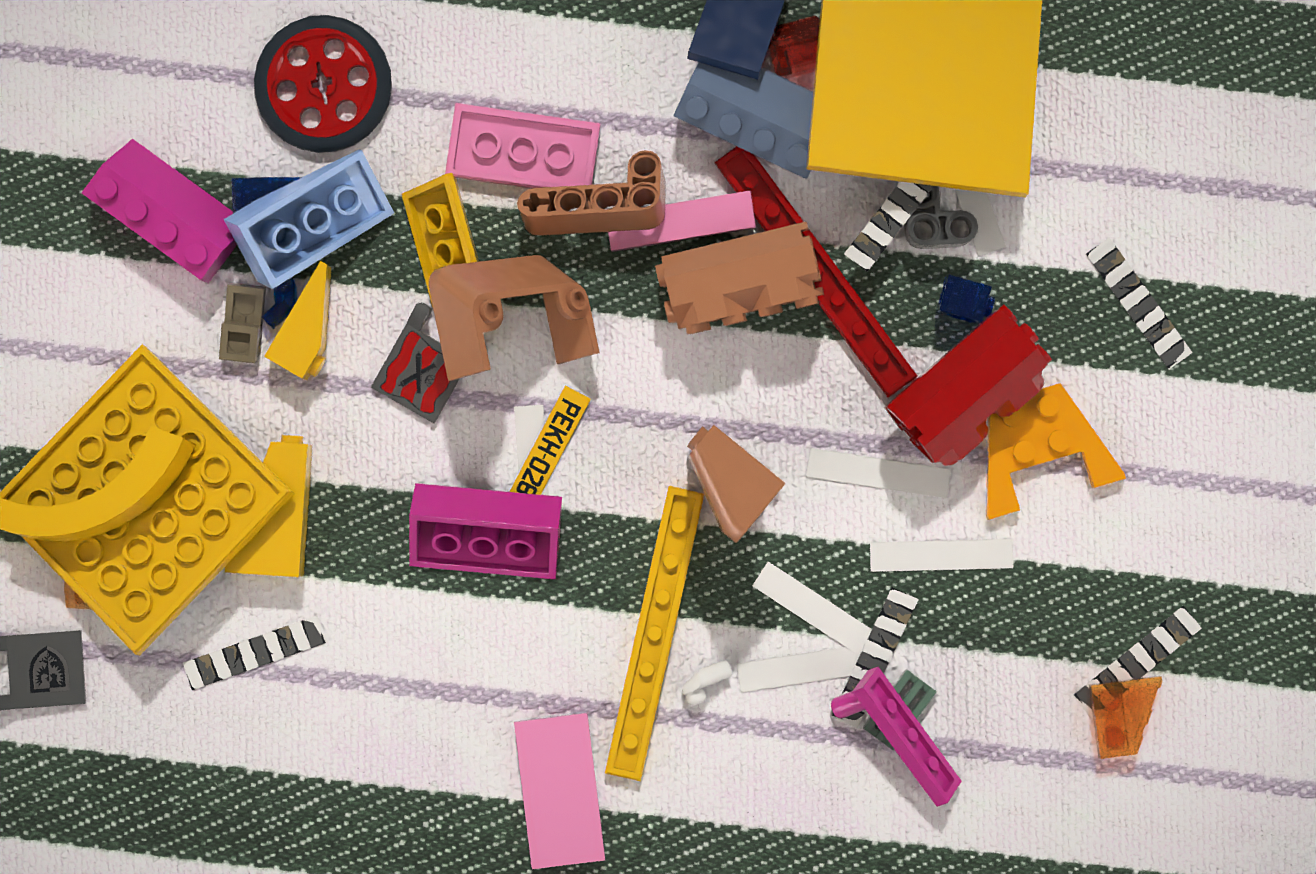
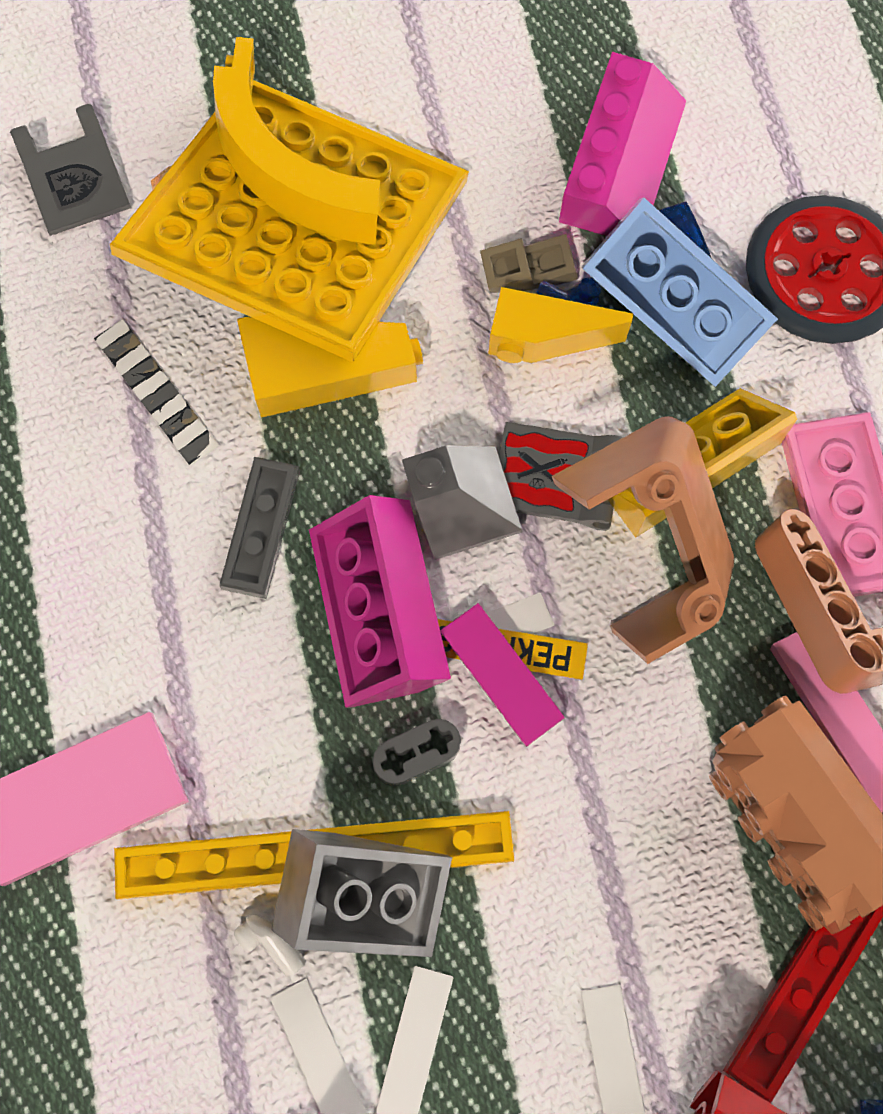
camera: 70 degrees right, 15 degrees down
(395, 602) = (260, 528): none -> dark grey tile
(425, 442) = (461, 497): none -> flat silver slope
(569, 457) = (502, 675): none -> dark pink tile
(596, 538) = (410, 742): none -> dark grey beam
(694, 609) = (359, 895): none -> flat silver slope
(731, 480) = (553, 884): nougat windscreen -> none

